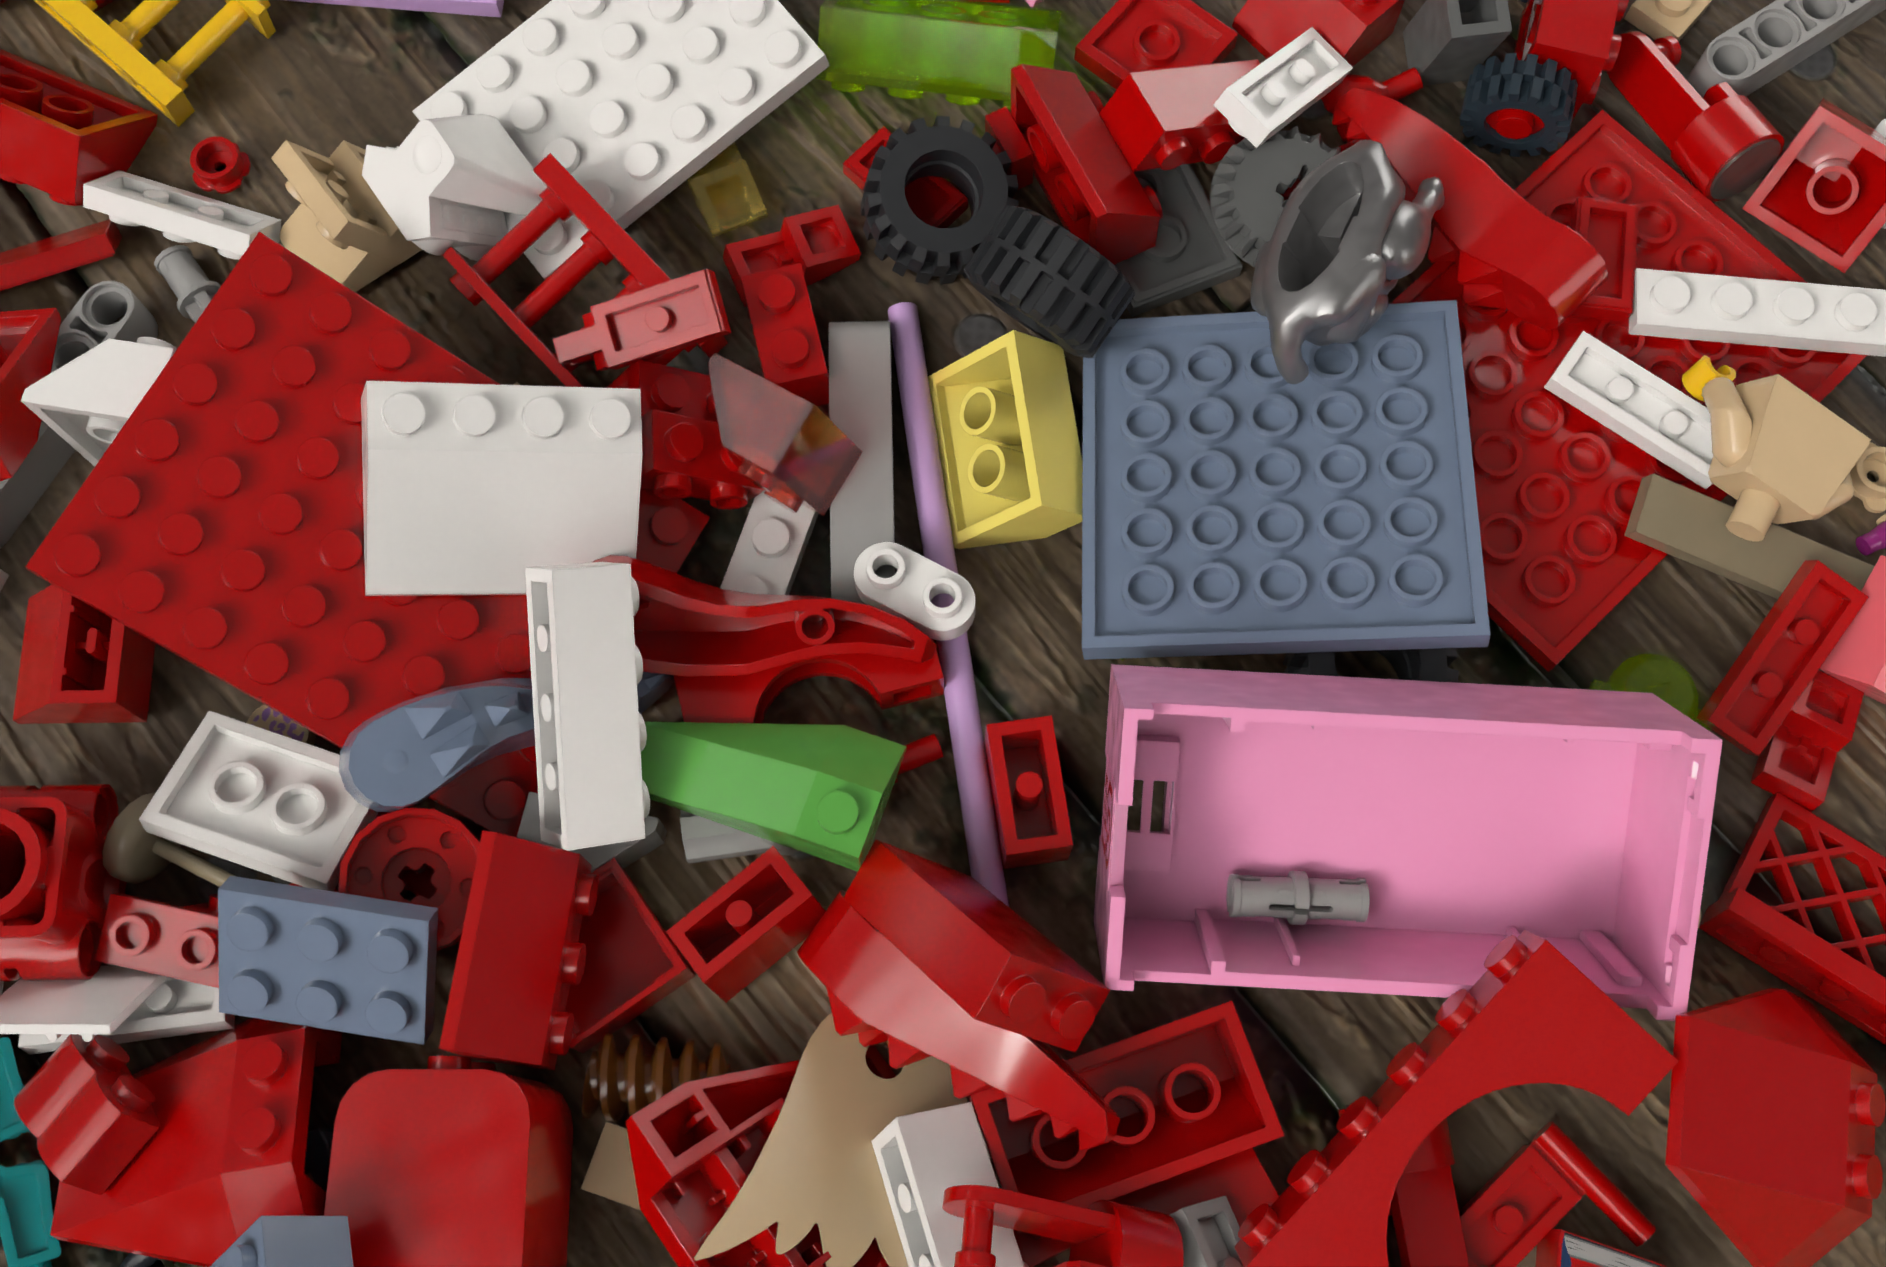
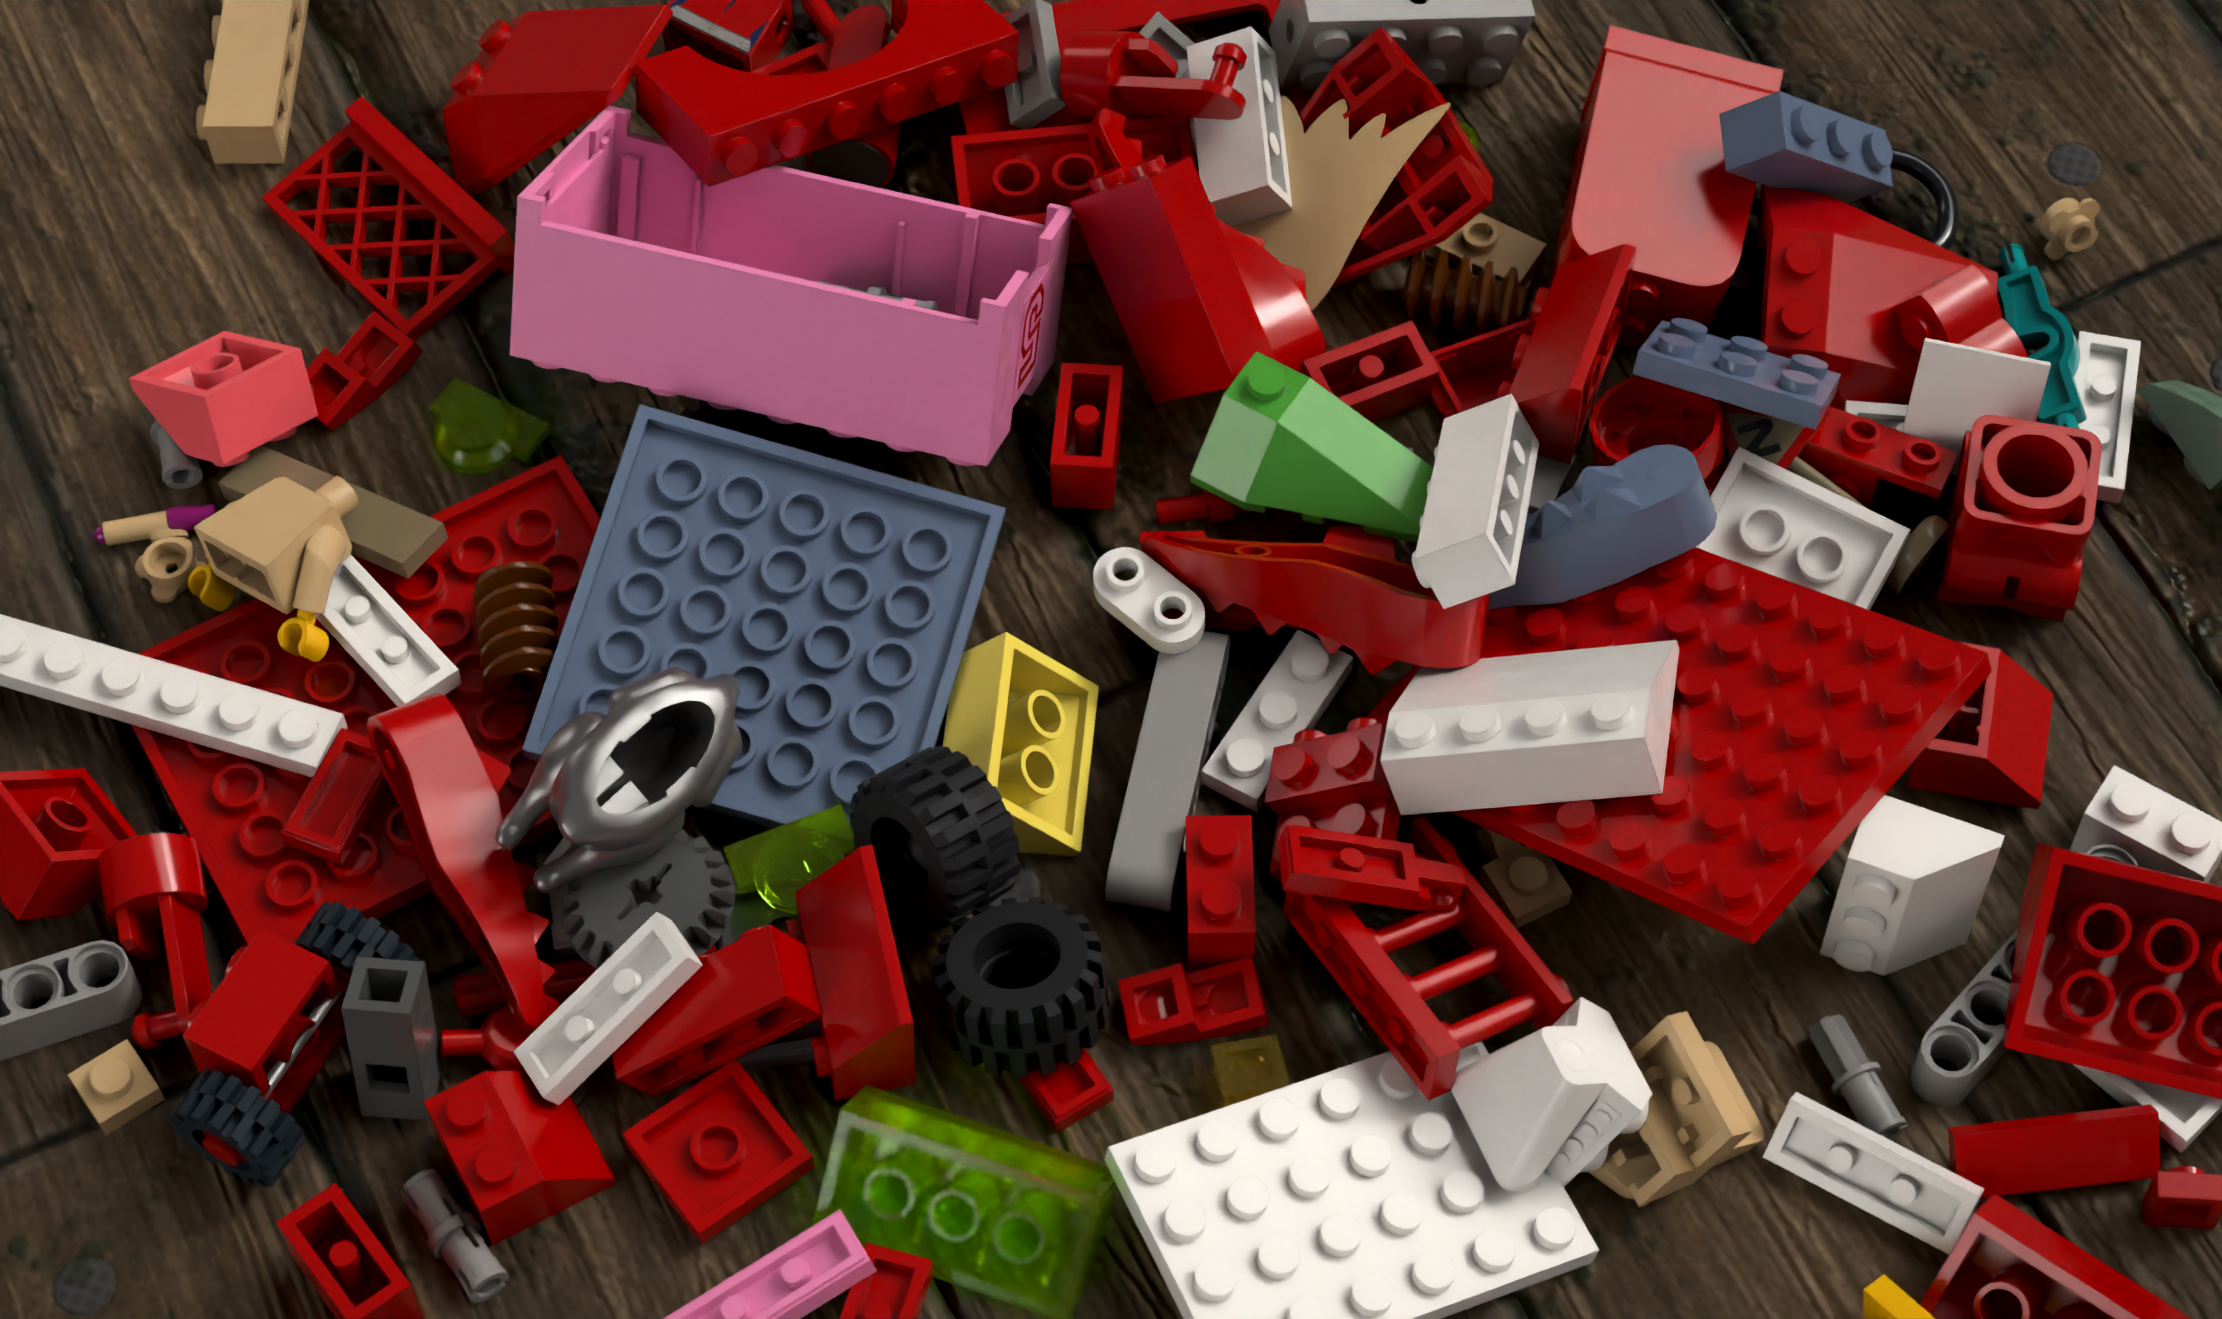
camera: 165 degrees left, 15 degrees down
(210, 156) = (1833, 1217): red plate -> none
(780, 438) = (1249, 735): clear red slope -> none
(953, 654) = (1113, 660): lavender piece -> none
(1010, 139) = (932, 1057): red plate -> none
(1173, 278) = (790, 856): none -> clear neon green piece
(1512, 433) = (515, 630): none -> reddish brown piece
(1782, 657) = (352, 417): red plate -> none

